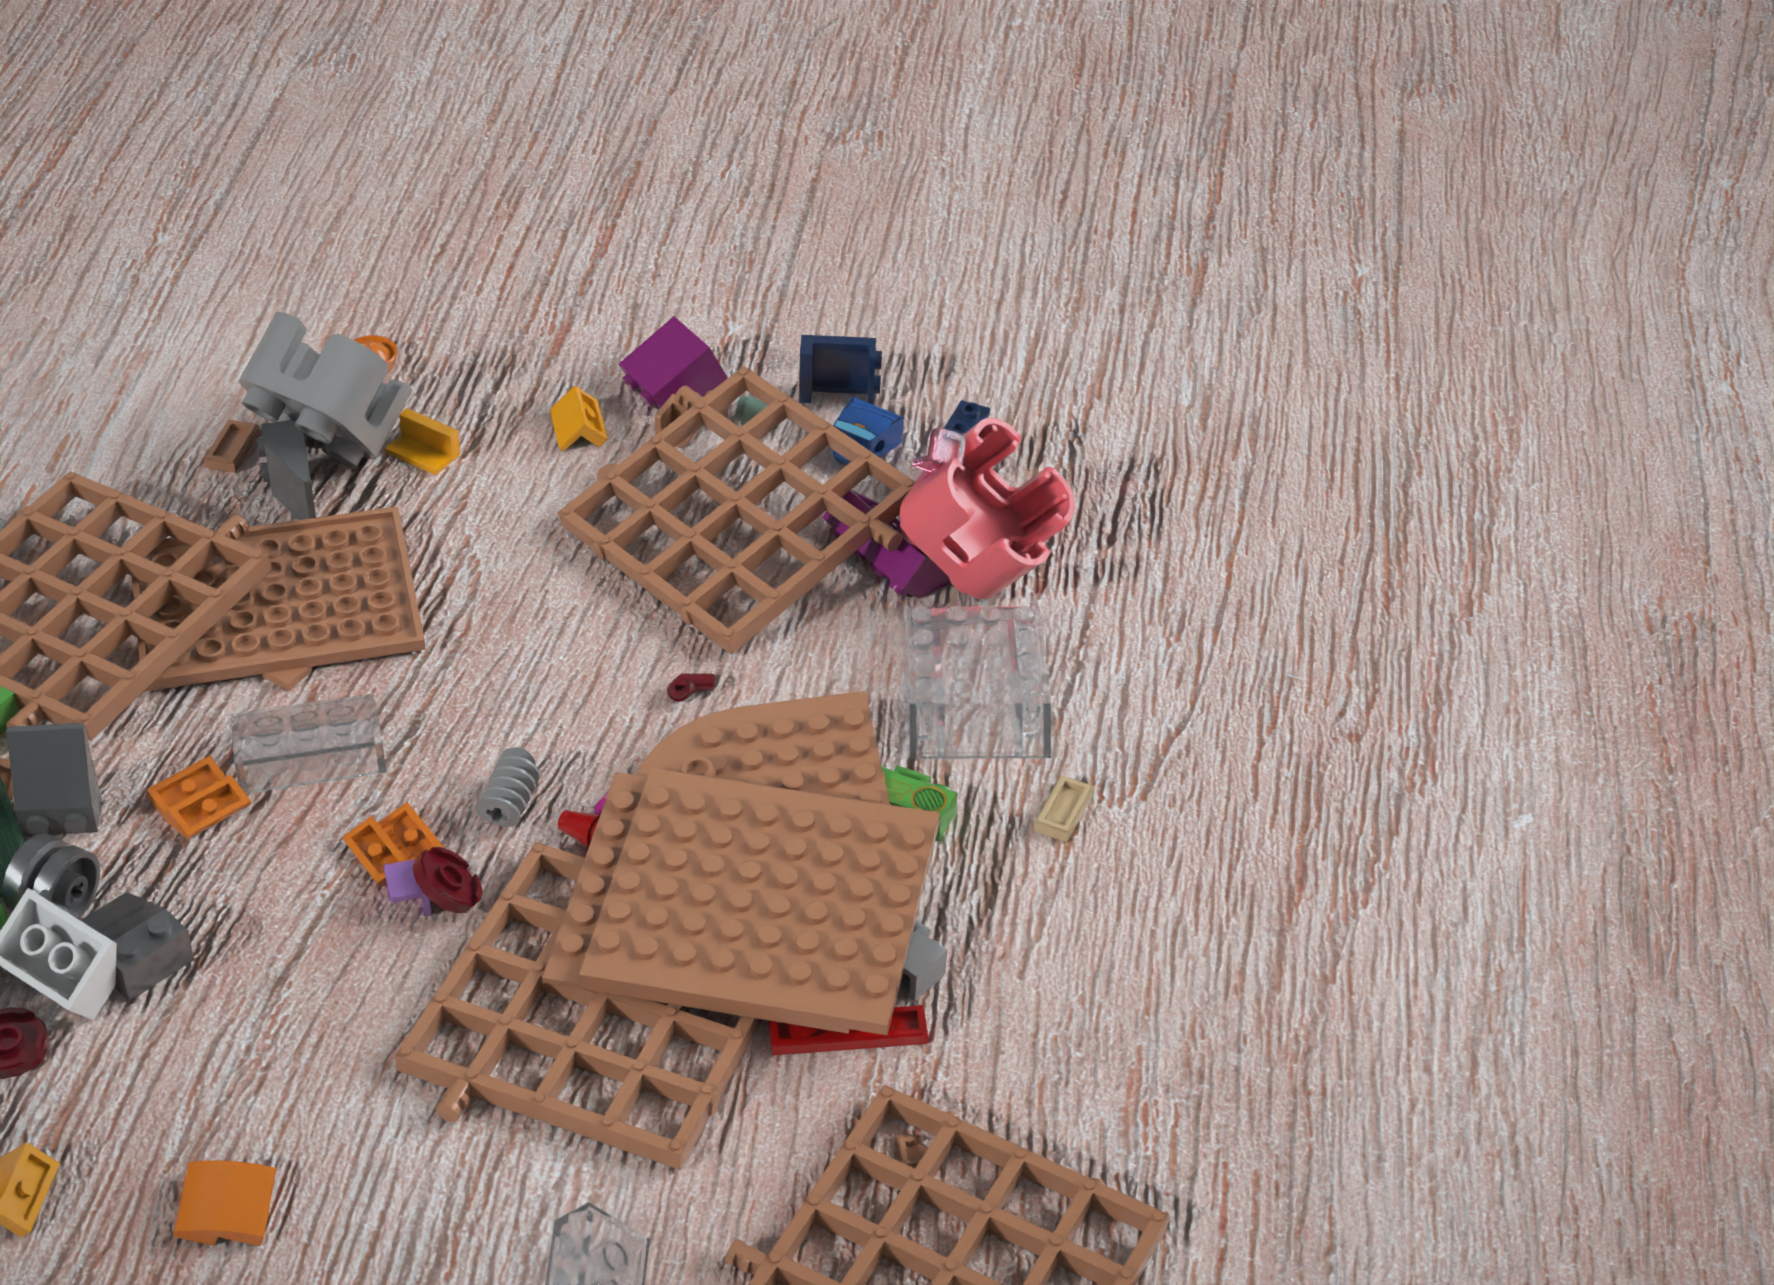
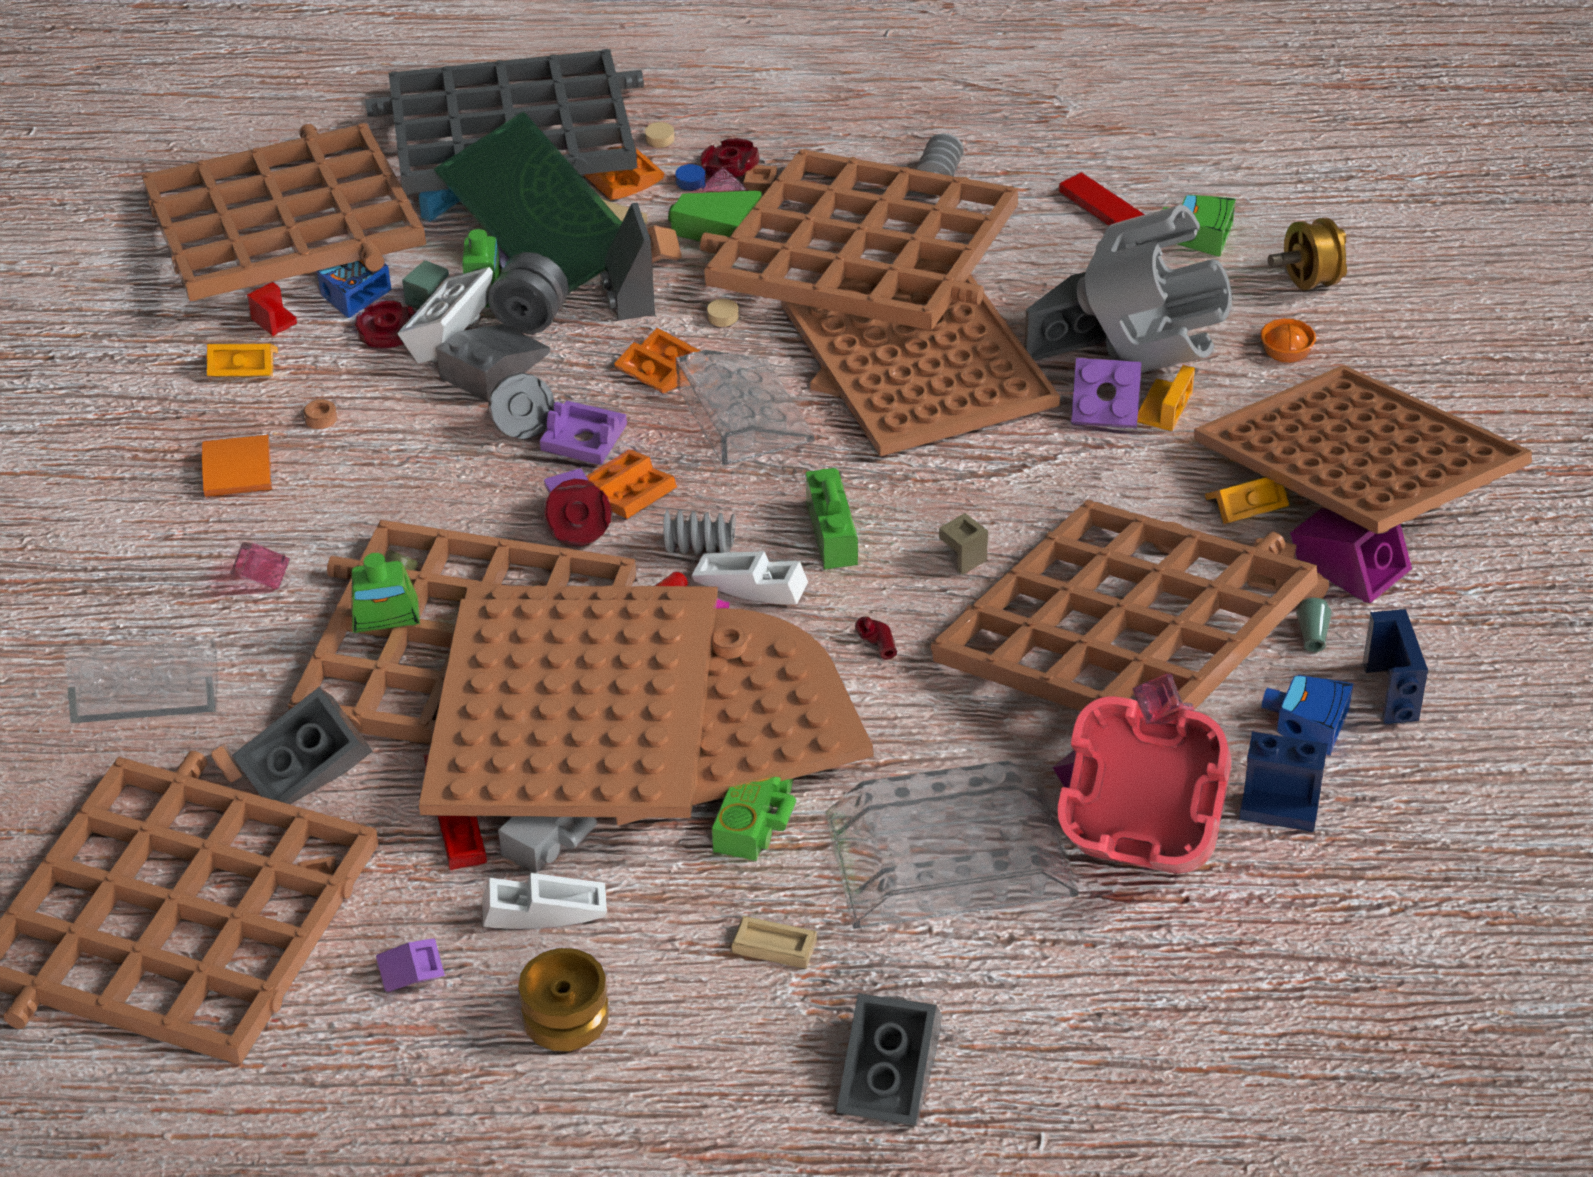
camera: 85 degrees right, 0 degrees up
(107, 431) = (1097, 199): none -> red tile
(134, 738) = (723, 312): none -> tan tile
(155, 1117) = (320, 414): none -> nougat tile
(173, 371) = (1215, 222): none -> bright green torso
(248, 912) = (521, 405): none -> tile
(271, 292) = (1313, 253): none -> pearl gold wheel
(298, 852) = (574, 419): none -> medium lavender piece
(400, 485) = (1090, 409): none -> medium lavender piece
(426, 1181) = (260, 565): none -> clear pink panel
(466, 1045) = (408, 563): none -> olive tile
(519, 689) = (831, 518): none -> bright green piece
(560, 1027) = (382, 595): none -> bright green torso
(570, 327) = (1362, 448): none -> nougat plate
(581, 761) = (752, 576): none -> white slope
(589, 595) = (968, 540): none -> dark tan panel
(739, 1221) = (226, 763): none -> nougat tile
(757, 1138) = (302, 749): none -> dark grey slope
(998, 966) = (542, 902): none -> white slope
(1065, 1072) = (410, 964): none -> medium lavender panel
(1135, 949) = (563, 999): none -> pearl gold wheel
(1216, 743) = (889, 1059): none -> dark grey slope

